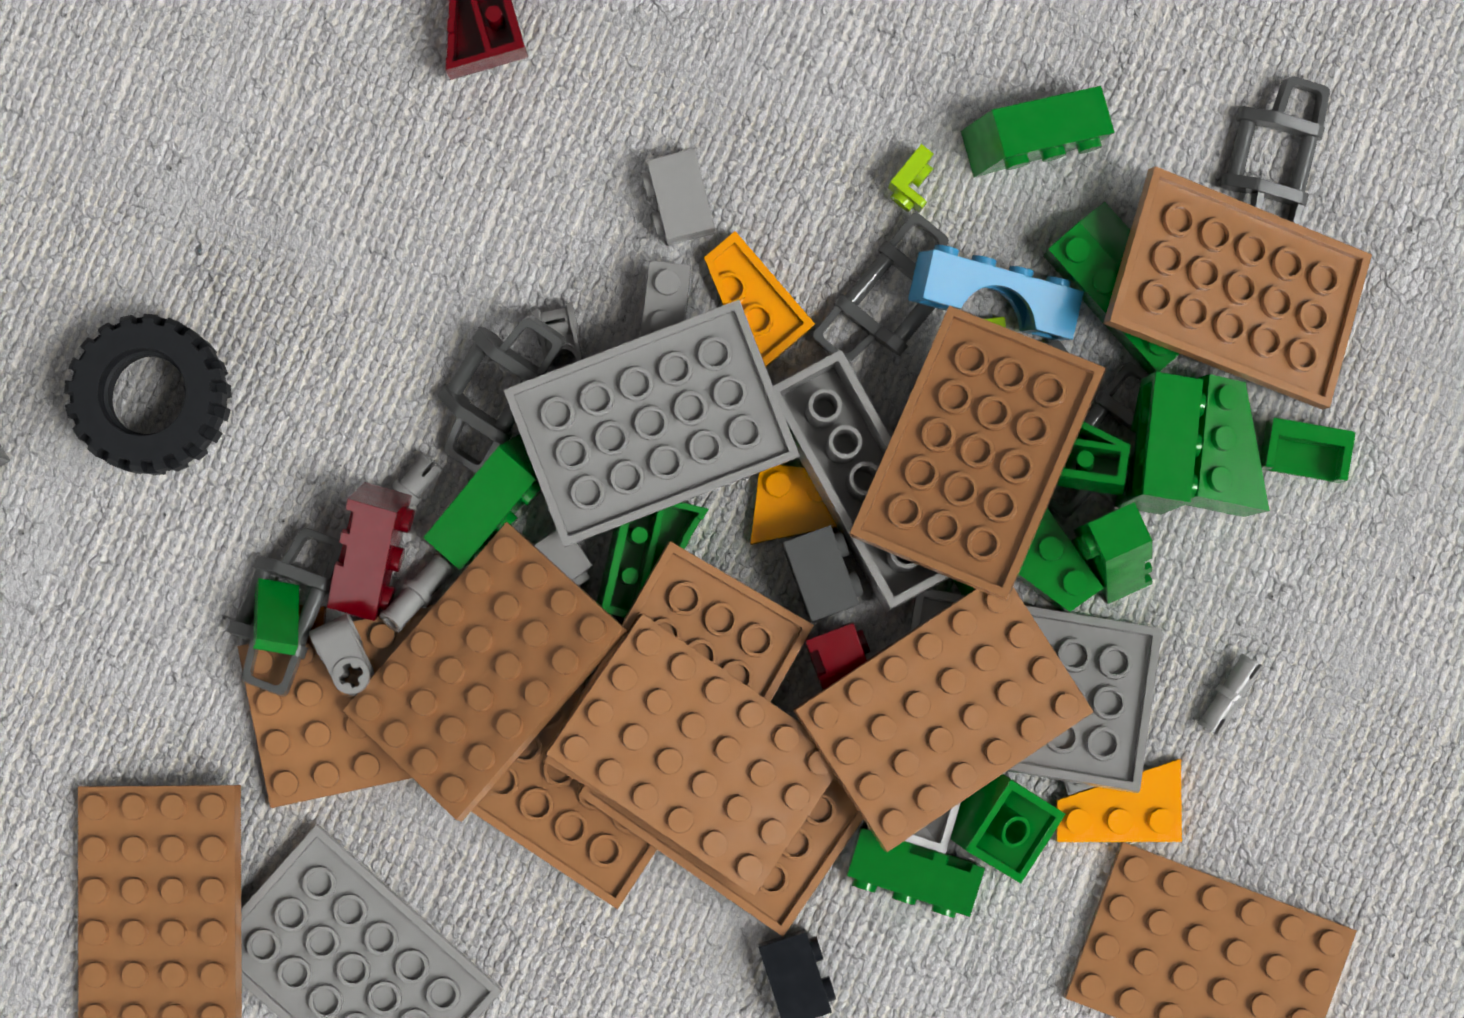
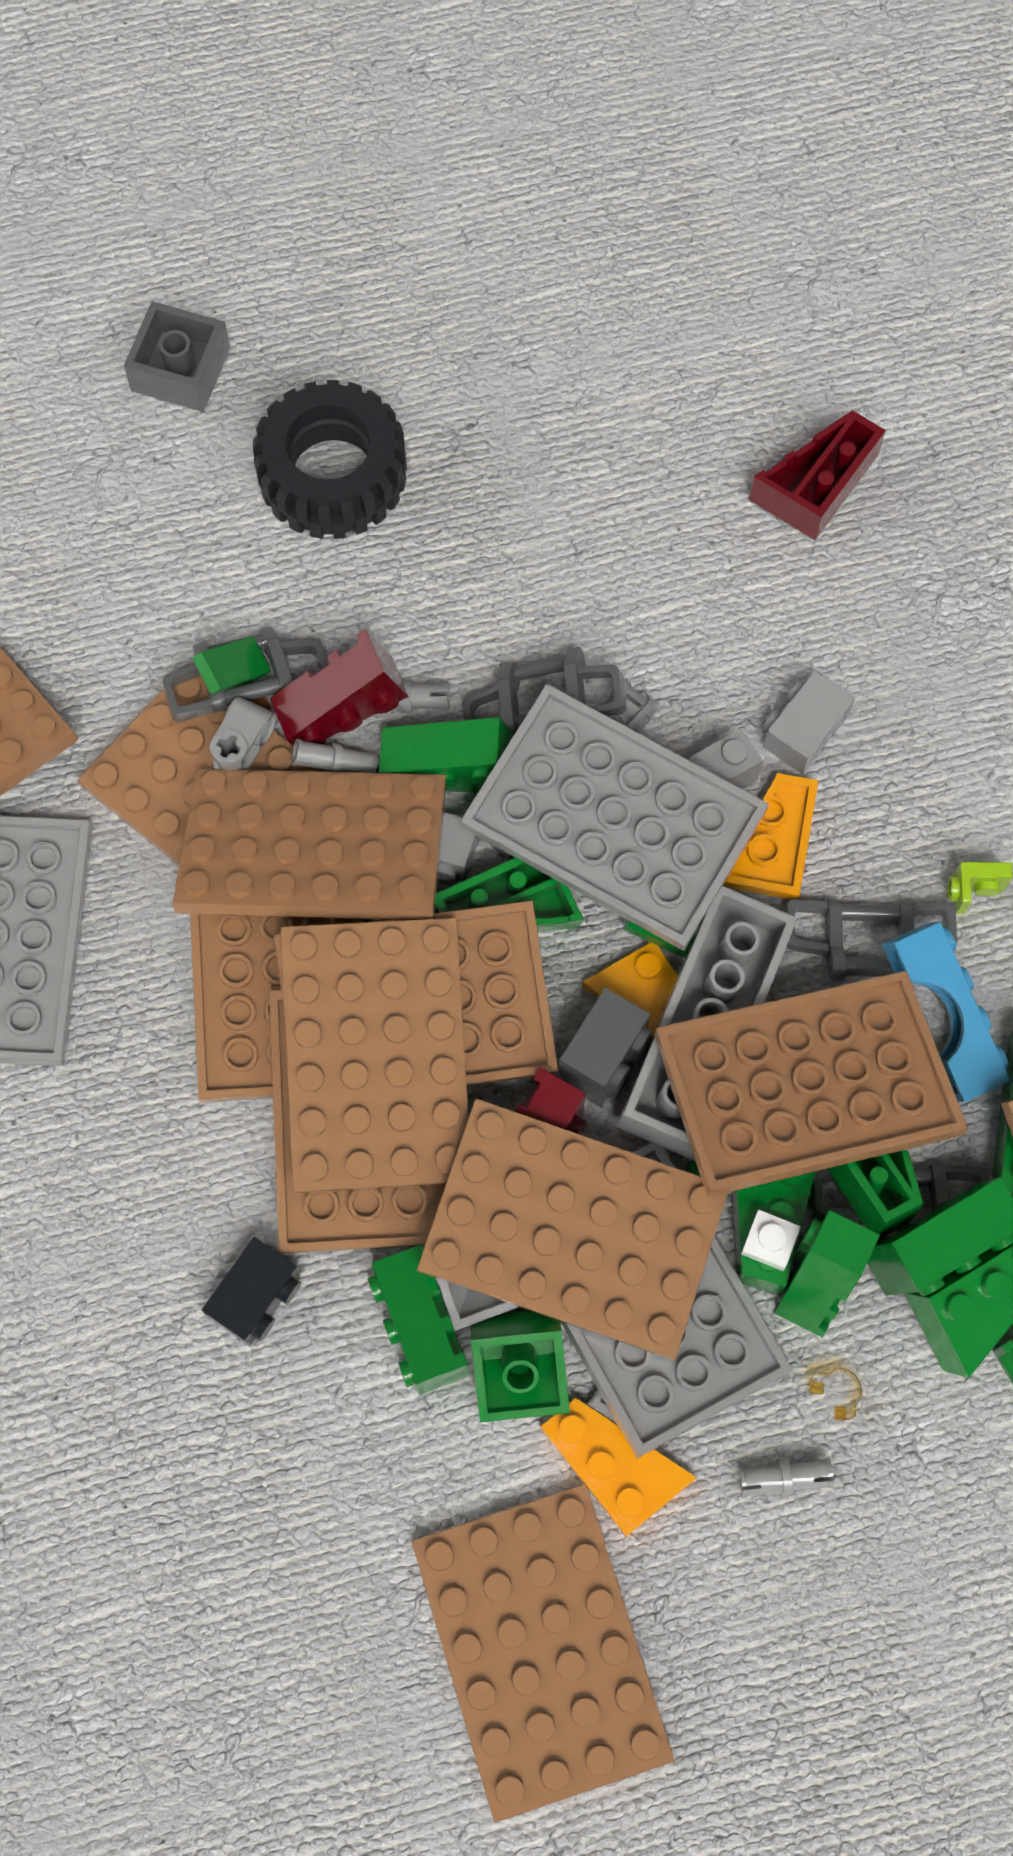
camera: 50 degrees right, 15 degrees down
(1065, 573) = (770, 1240): none -> white plate
(1184, 618) = (840, 1411): none -> clear yellow piece

